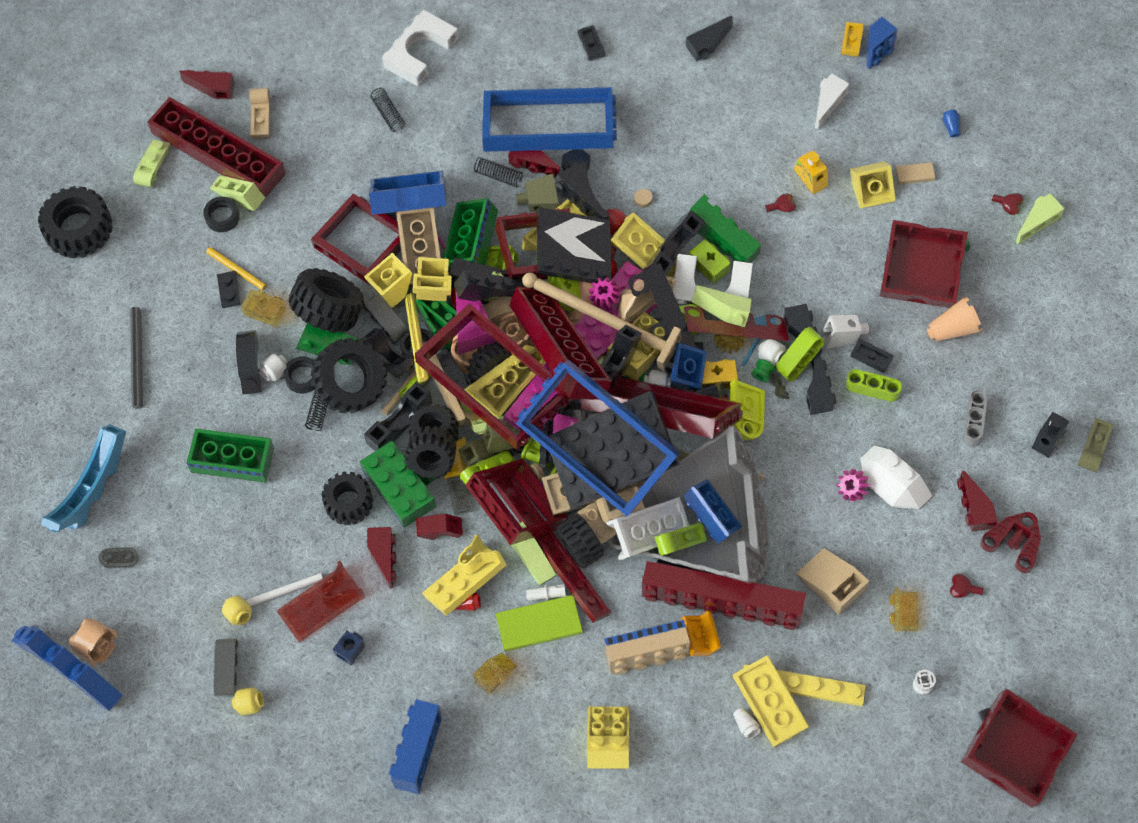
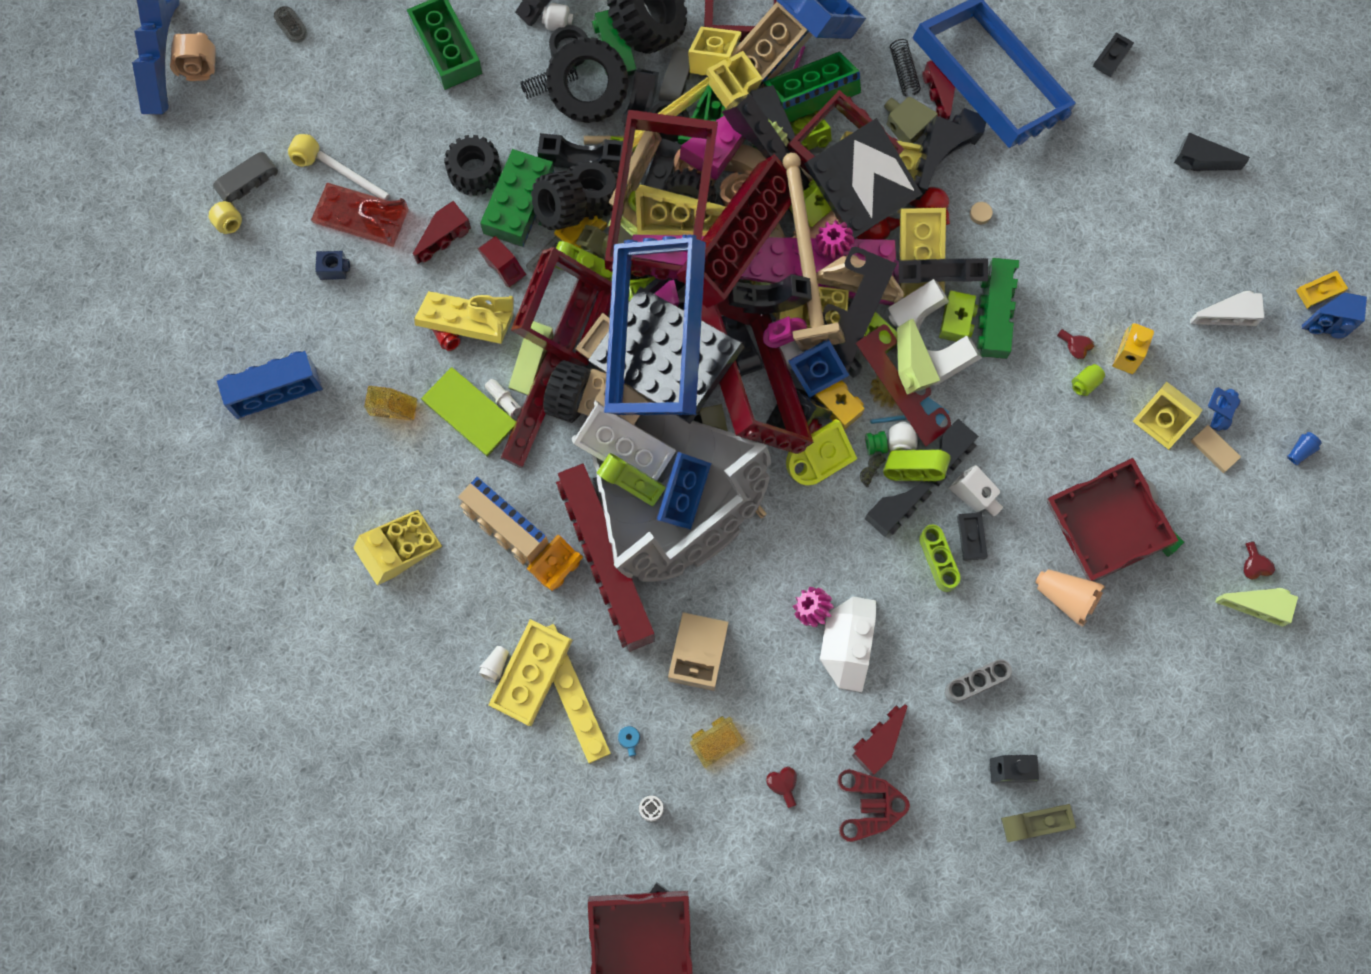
camera: 50 degrees right, 10 degrees up
(646, 369) = (781, 332): none -> dark pink bracket
(813, 214) = (1088, 380): none -> lime brick
(863, 671) = (629, 744): none -> dark azure piece
(893, 149) = (1224, 409): none -> blue bracket

